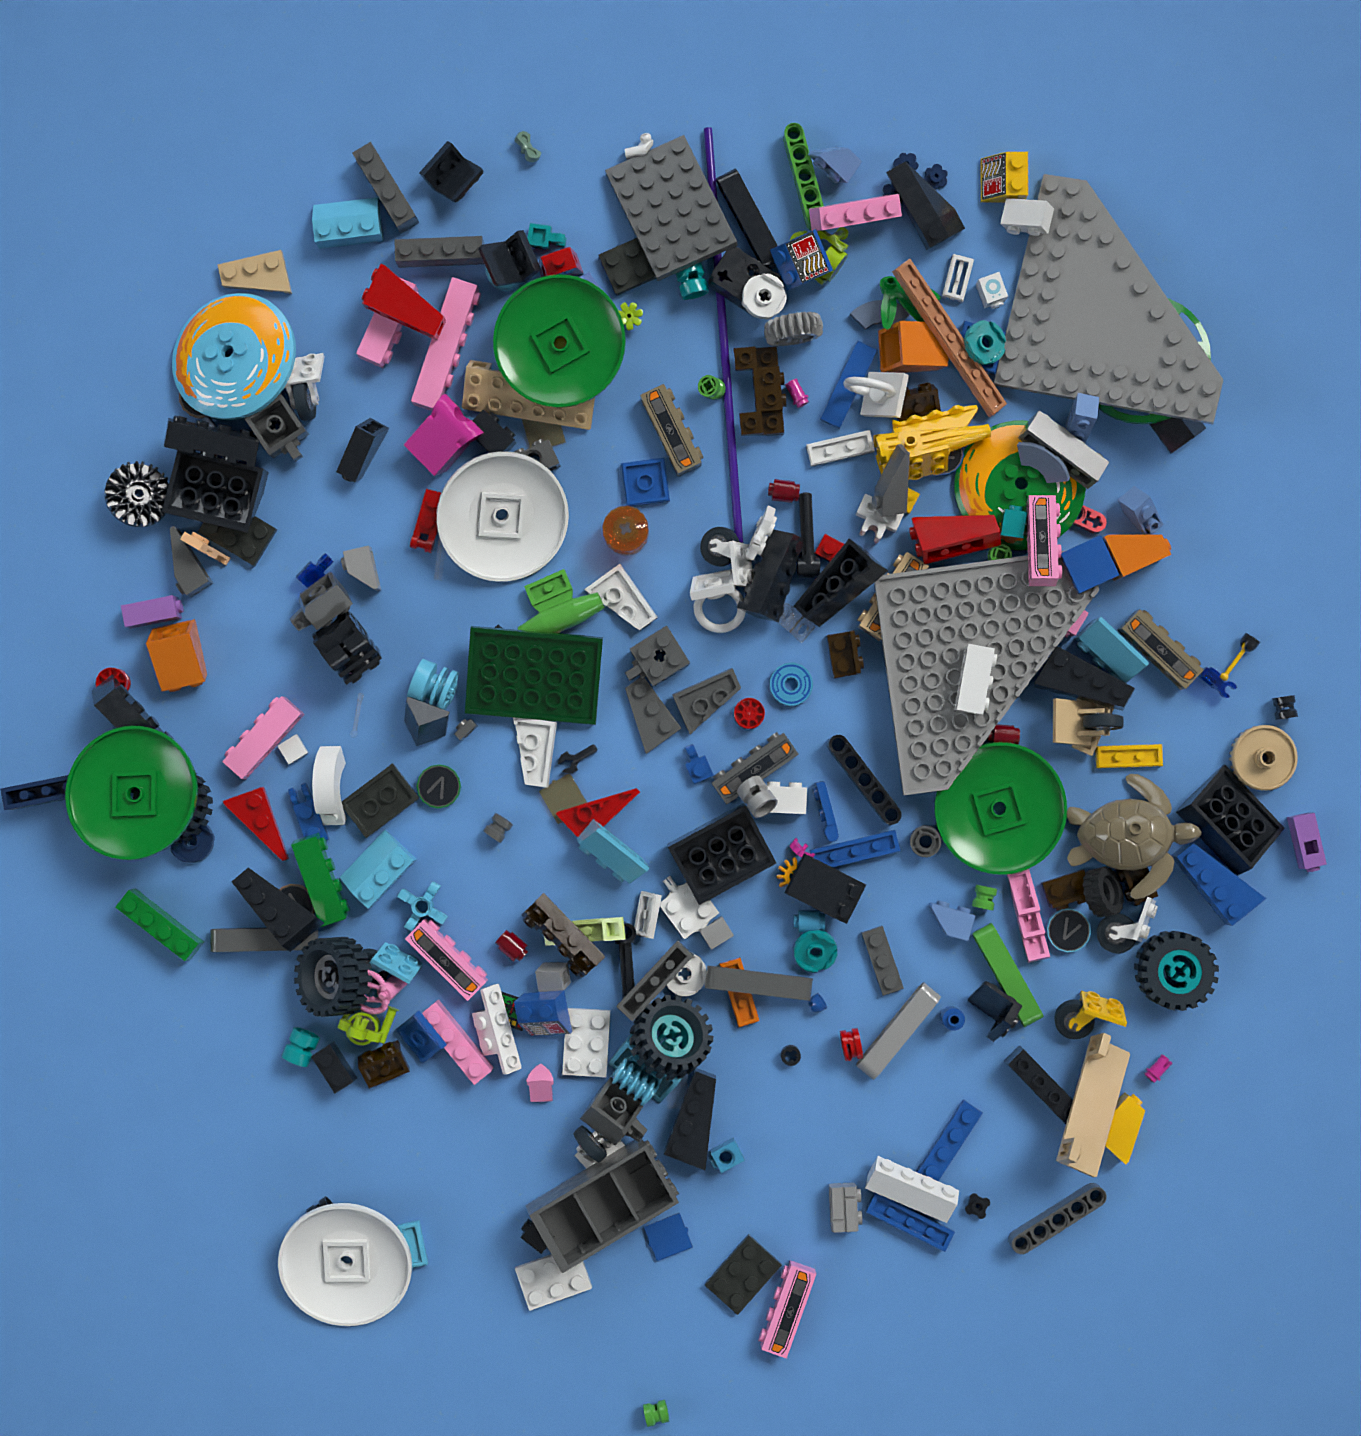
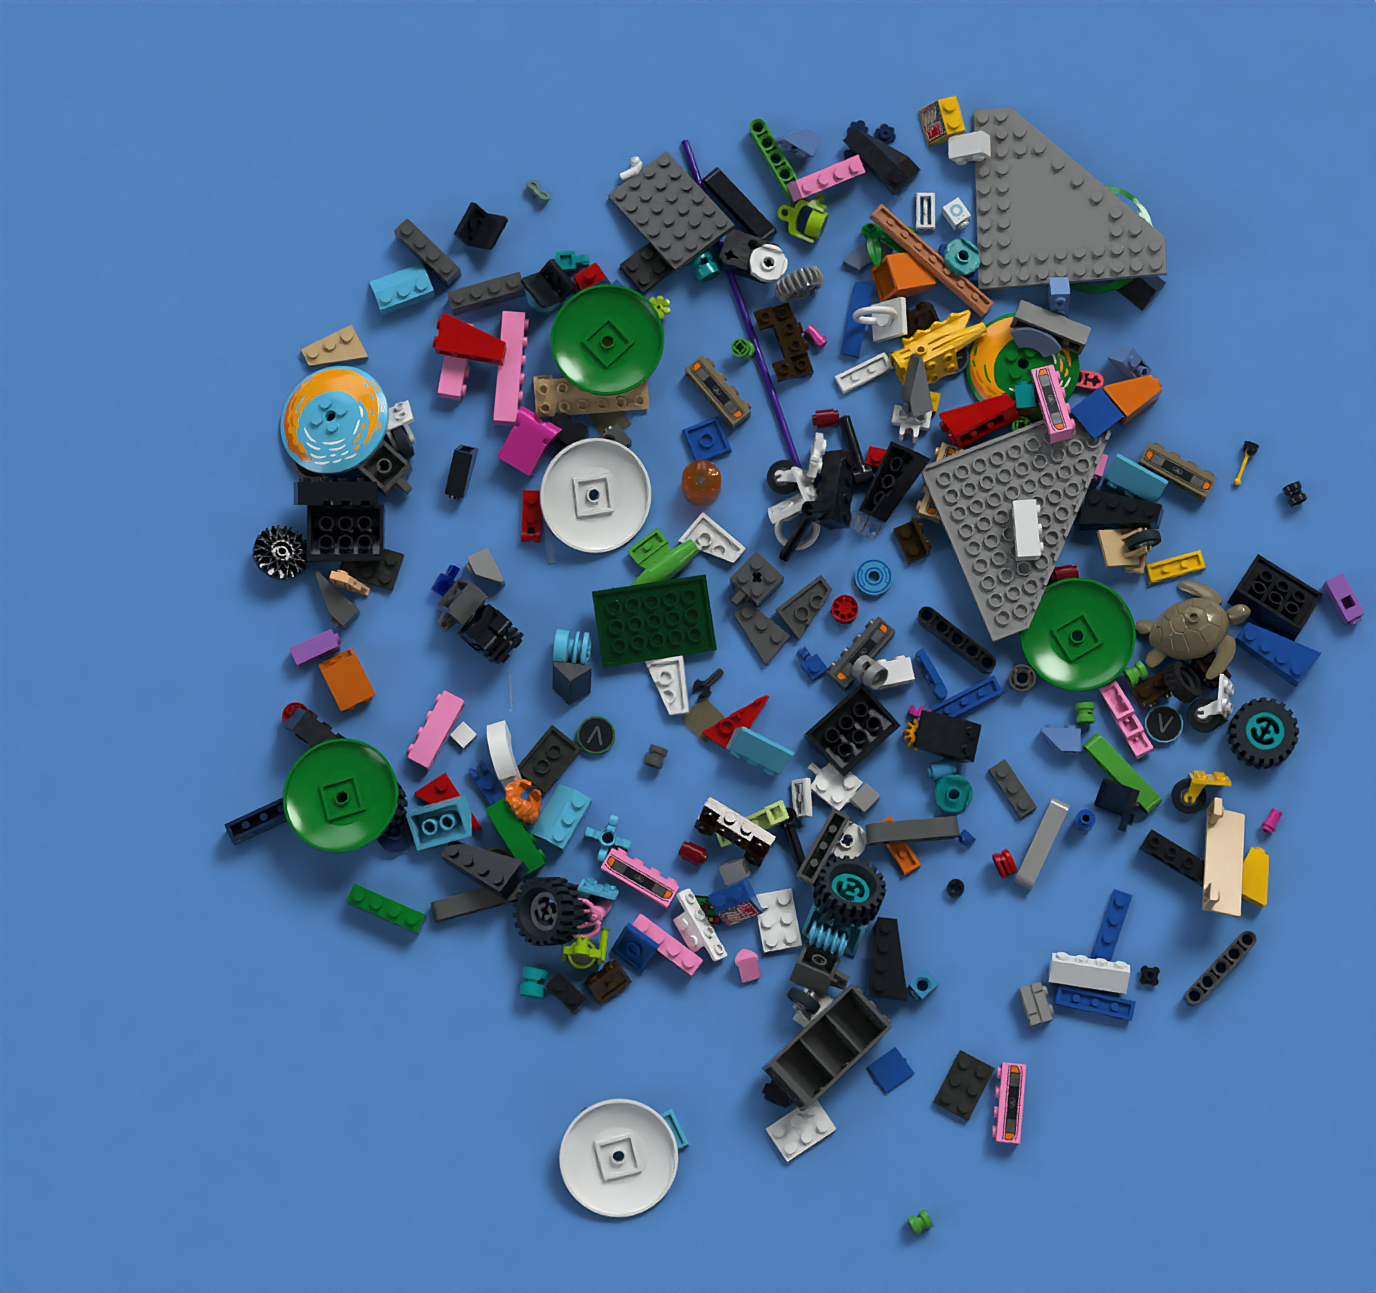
camera: 10 degrees left, 10 degrees down
(240, 844) = (440, 822): none -> medium azure slope
(332, 853) = (523, 809): none -> orange piece
(465, 728) = (606, 681): dark grey plate -> none
(737, 600) = (811, 513): none -> black axle
(801, 259) = (791, 226): slope -> none
(1052, 867) = (1135, 673): none -> bright green wheel
(1212, 678) = (1227, 485): clear blue plate -> none
(1248, 754) = (1287, 553): tan wheel -> none

